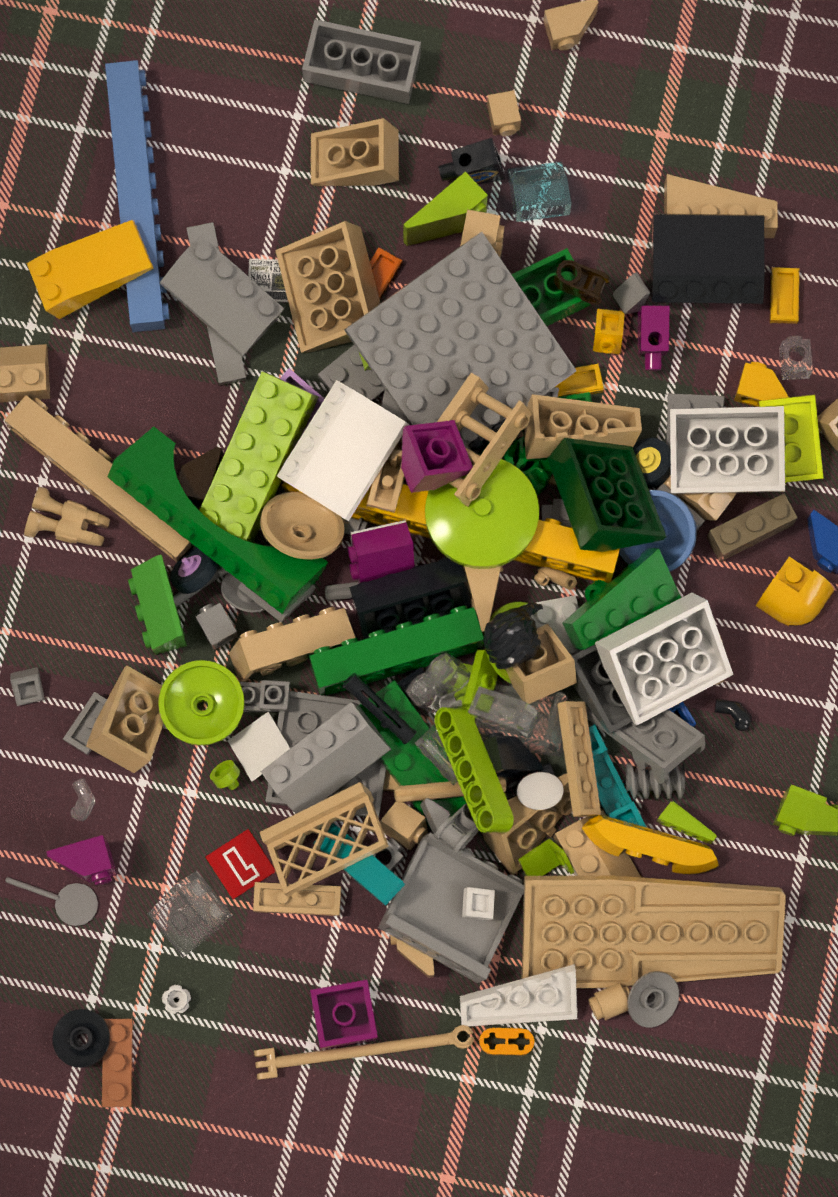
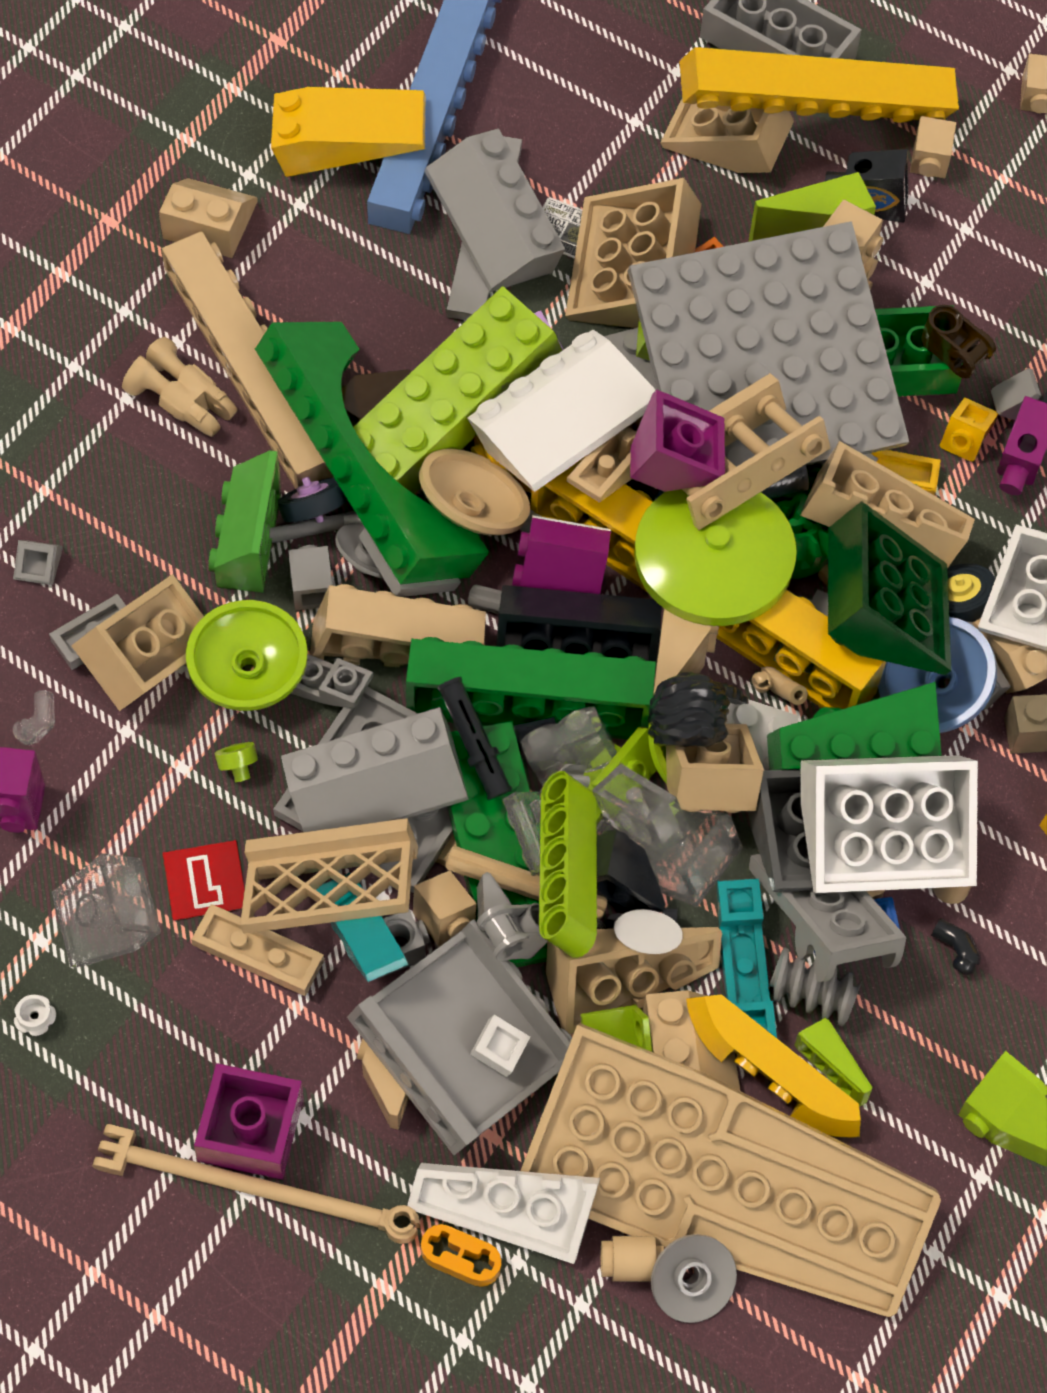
camera: 20 degrees right, 15 degrees down
(258, 745) = (293, 734): white sticker -> none
(411, 107) = (817, 85): none -> yellow brick
(539, 191) = (942, 249): clear light blue slope -> none
(579, 759) = (718, 909): tan plate -> none

